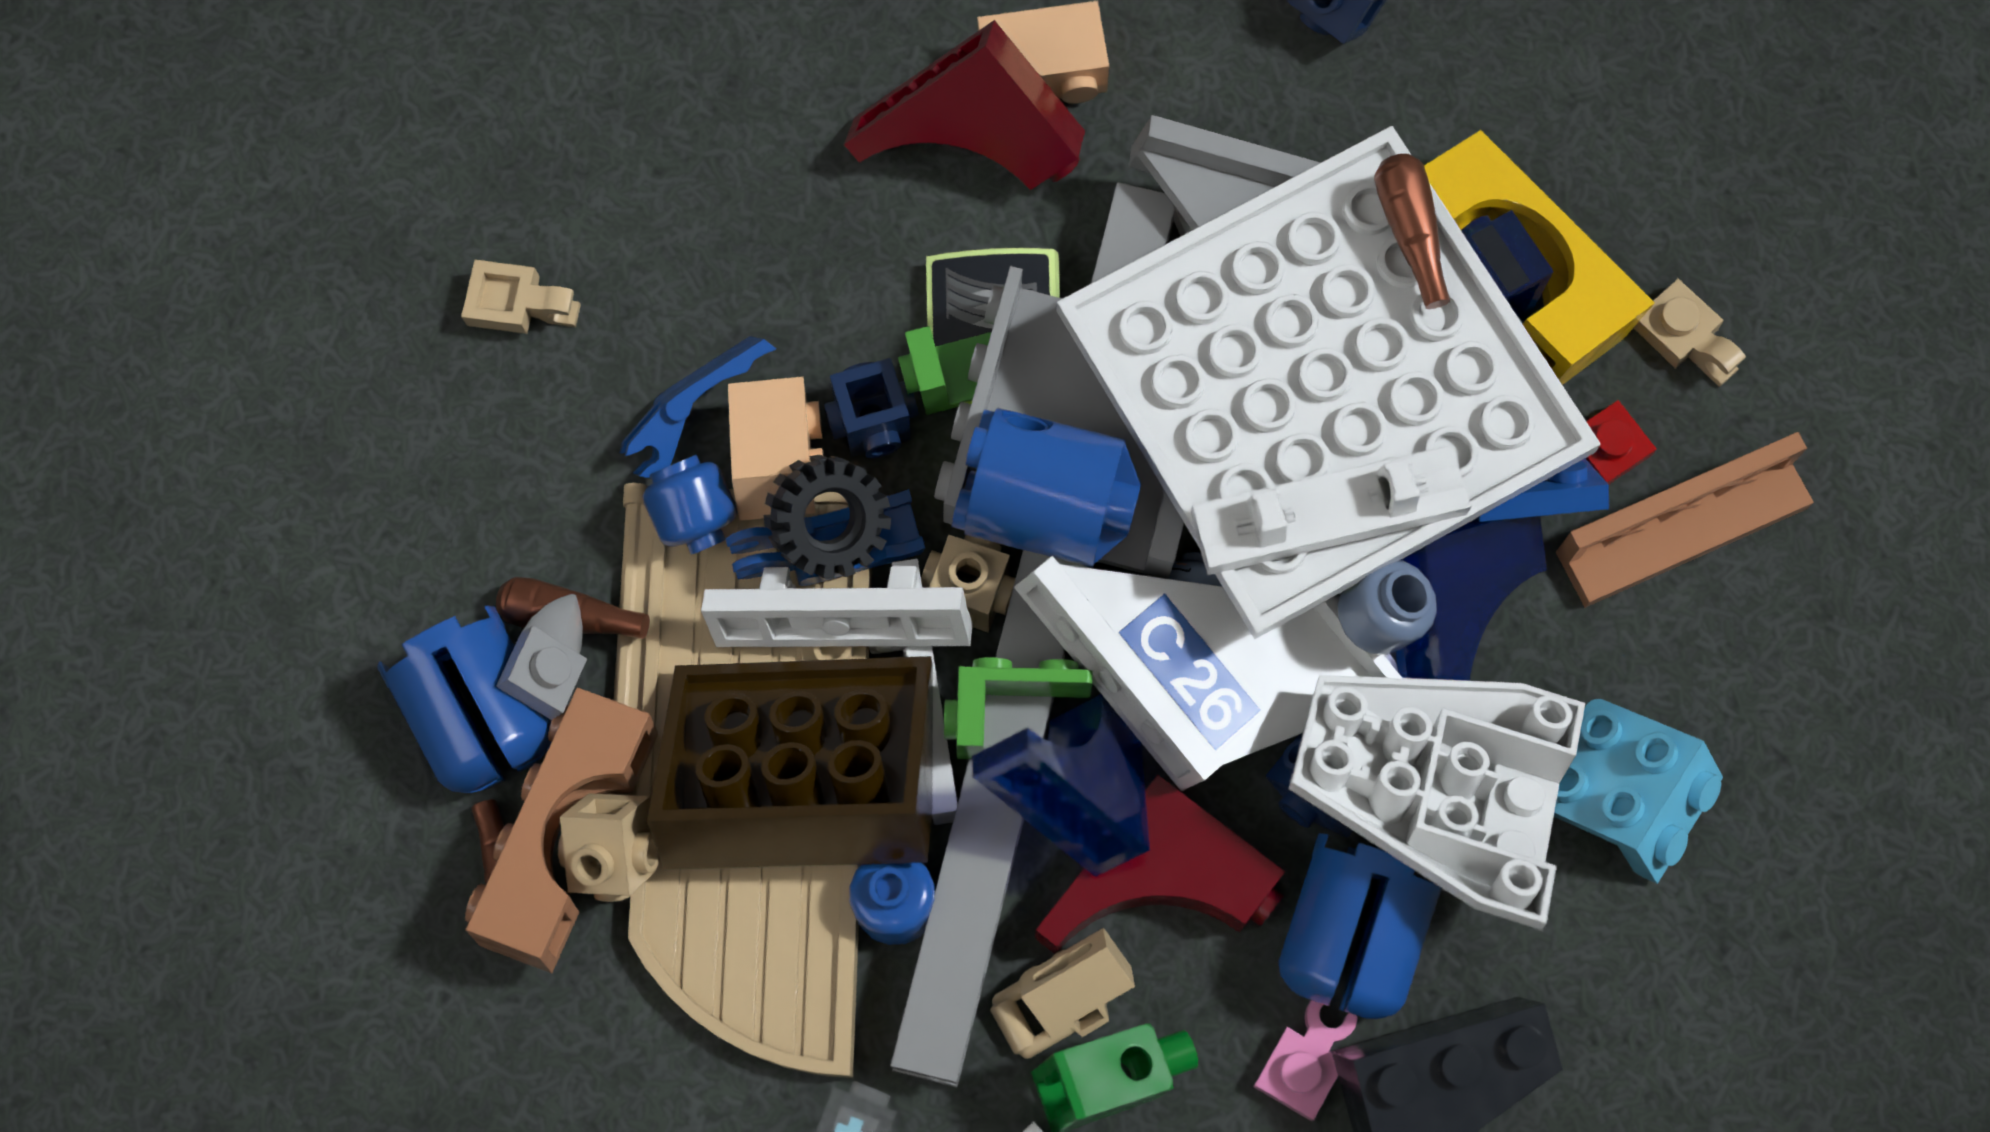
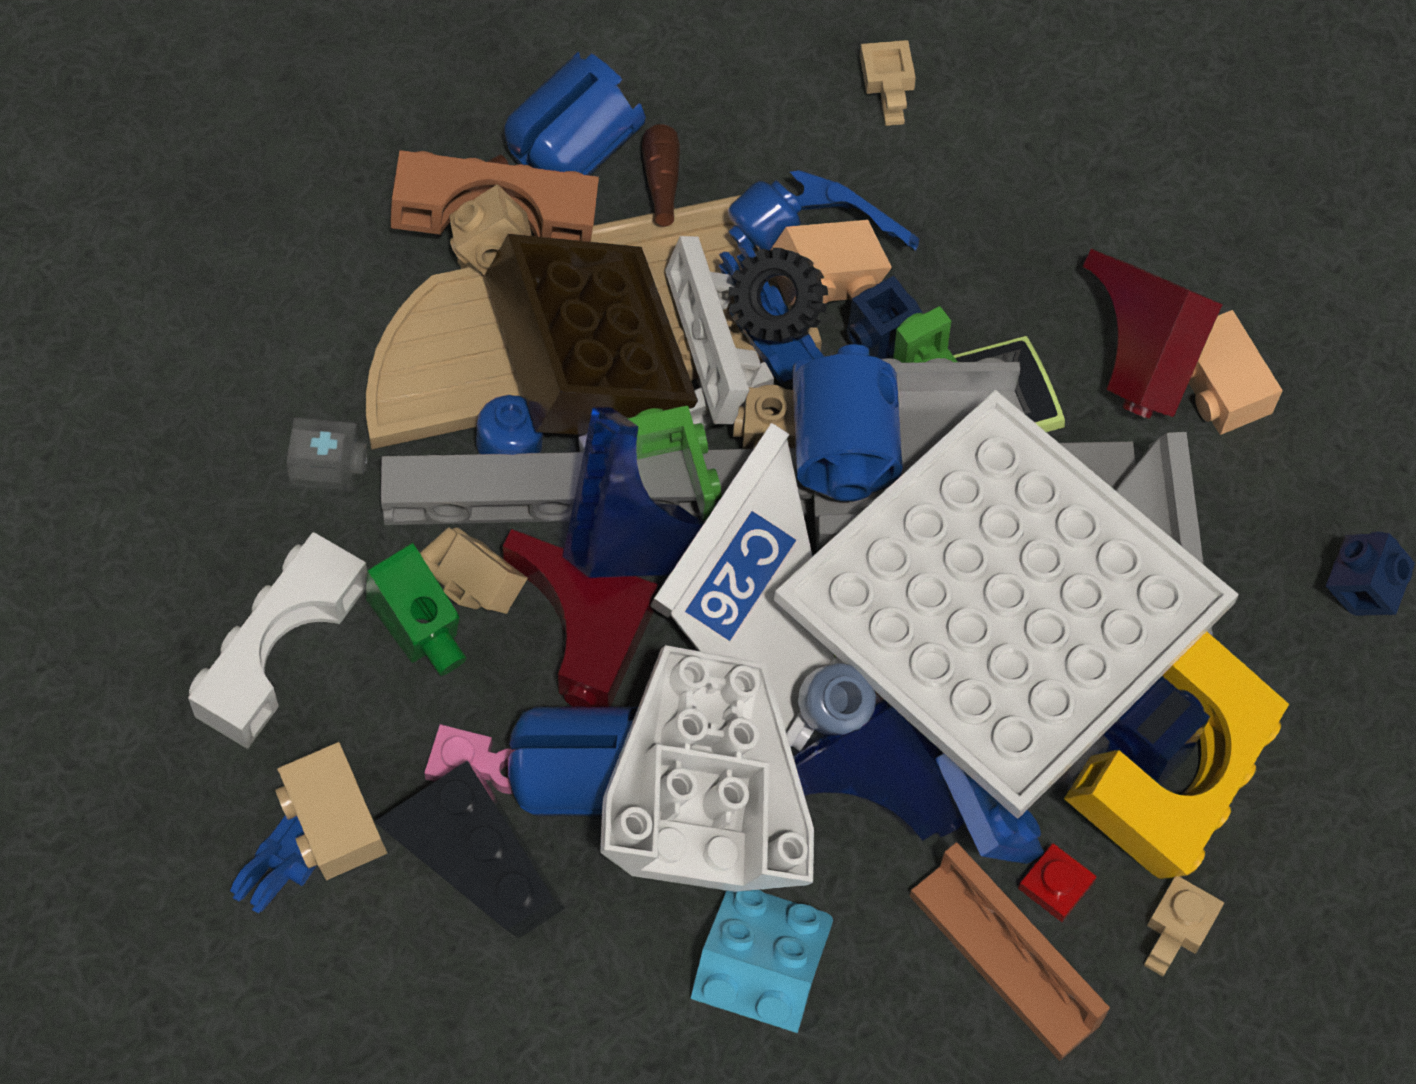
camera: 70 degrees right, 10 degrees down
(547, 658) = (617, 153): light grey plate -> none
(1329, 509) = (892, 617): white hinge -> none
(1411, 214) = (1159, 618): copper piece -> none

